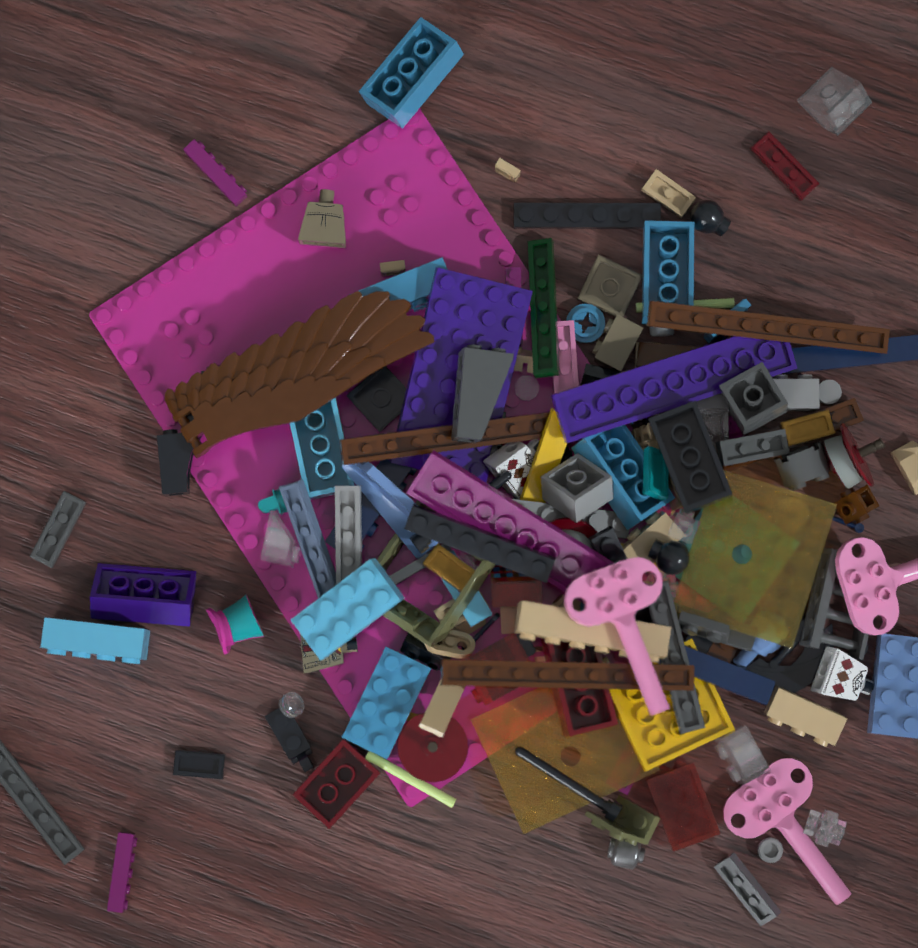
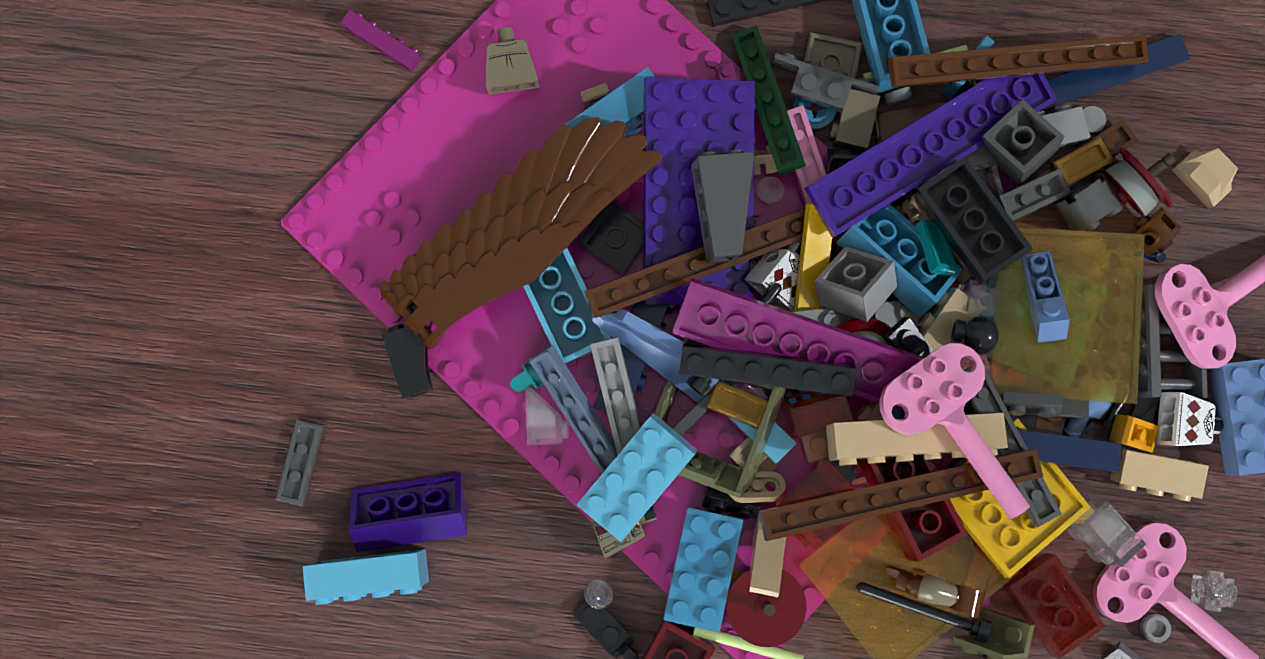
camera: 10 degrees left, 0 degrees up
(235, 623) = (516, 520): teal hat -> none
(485, 627) = (787, 462): dark blue hinge -> none
(583, 768) = (938, 591): none -> piece
(593, 306) = (820, 84): none -> dark grey bracket
(736, 537) = (1045, 297): none -> medium blue slope
(793, 676) = (1134, 433): none -> light orange slope

